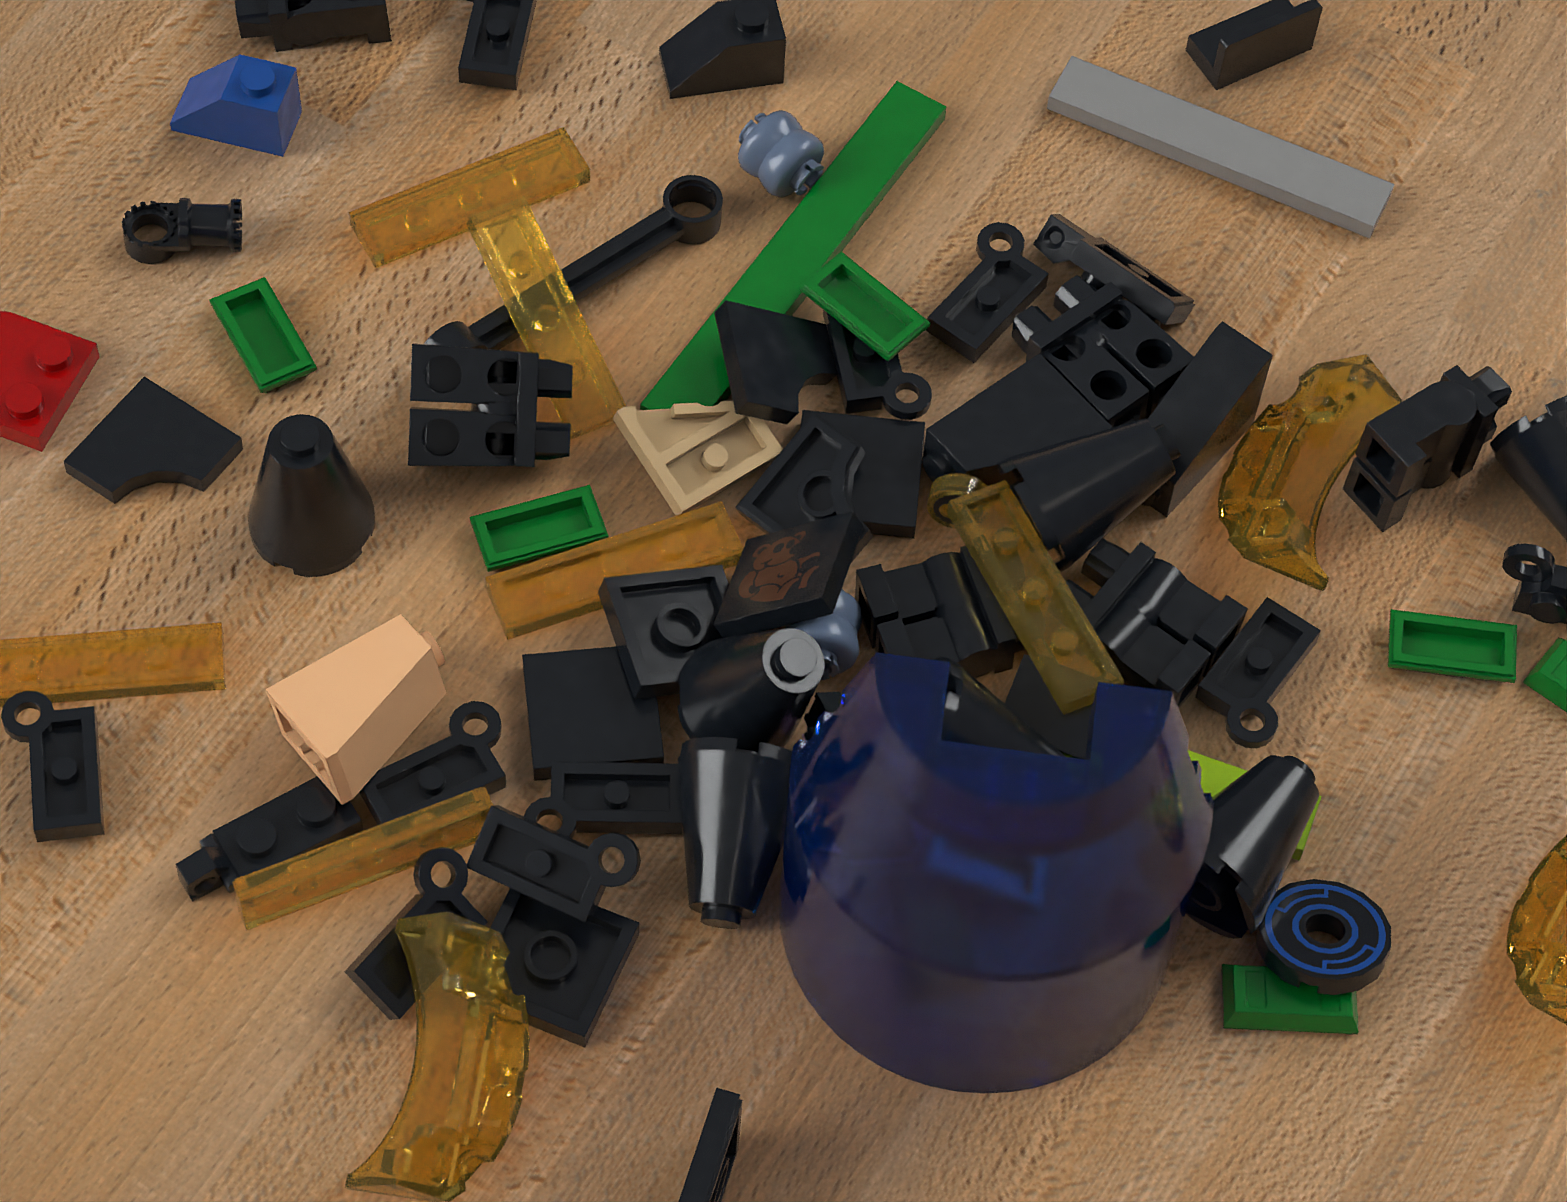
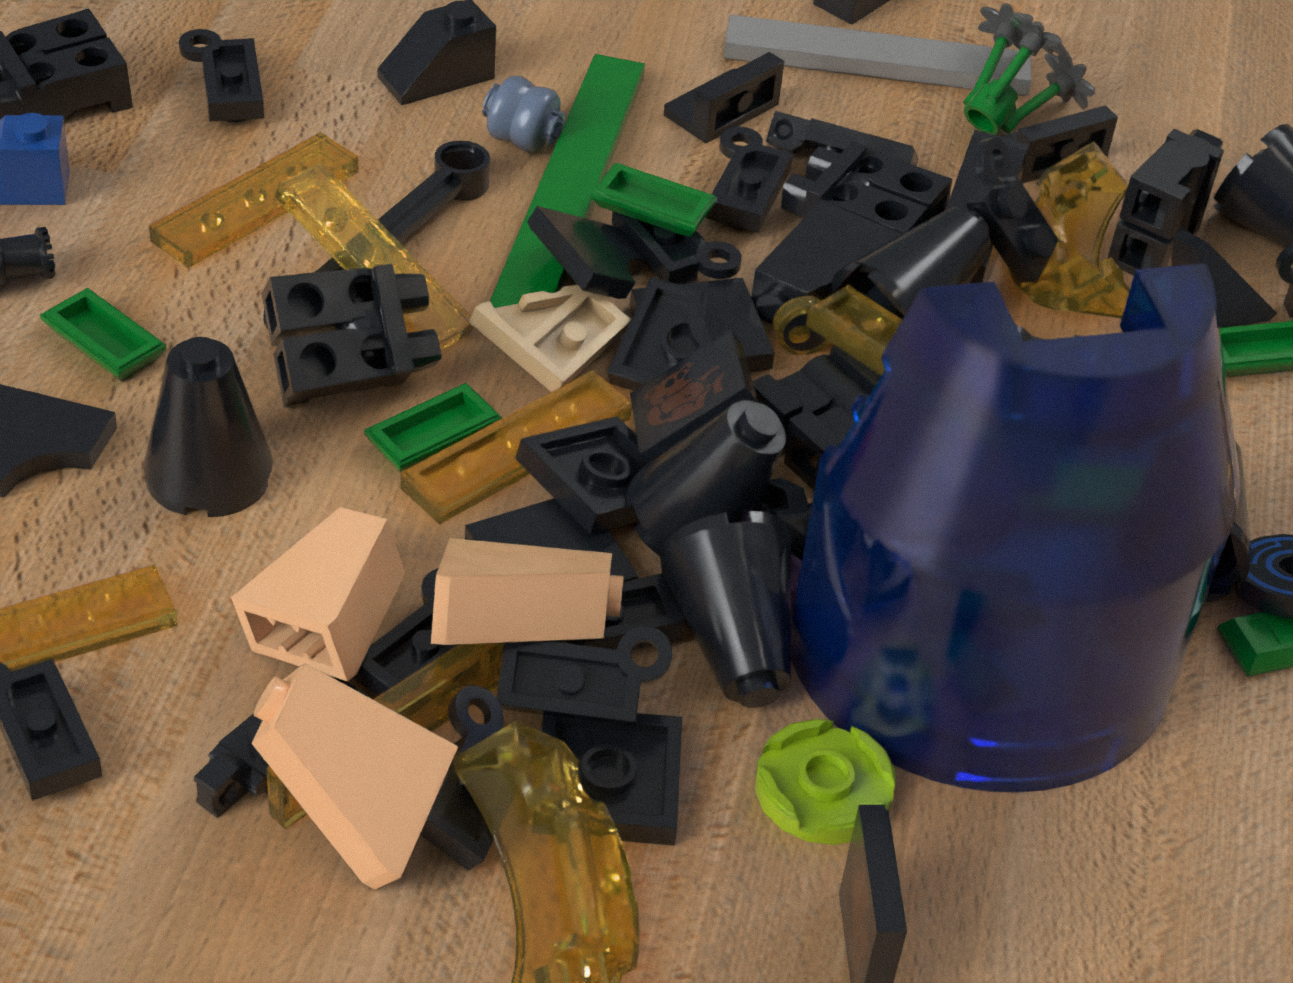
camera: 20 degrees left, 15 degrees down
(303, 907) = (352, 768): none -> light nougat slope
(517, 766) = (522, 593): none -> light nougat slope
(748, 1025) = (819, 776): none -> lime tile
(1017, 174) = (729, 98): none -> black panel
(1216, 433) = (1012, 216): none -> black hinge
(1307, 248) = (993, 104): none -> plant
(1356, 321) = (1062, 137): none -> black panel
(1423, 570) = (1234, 296): none -> black slope

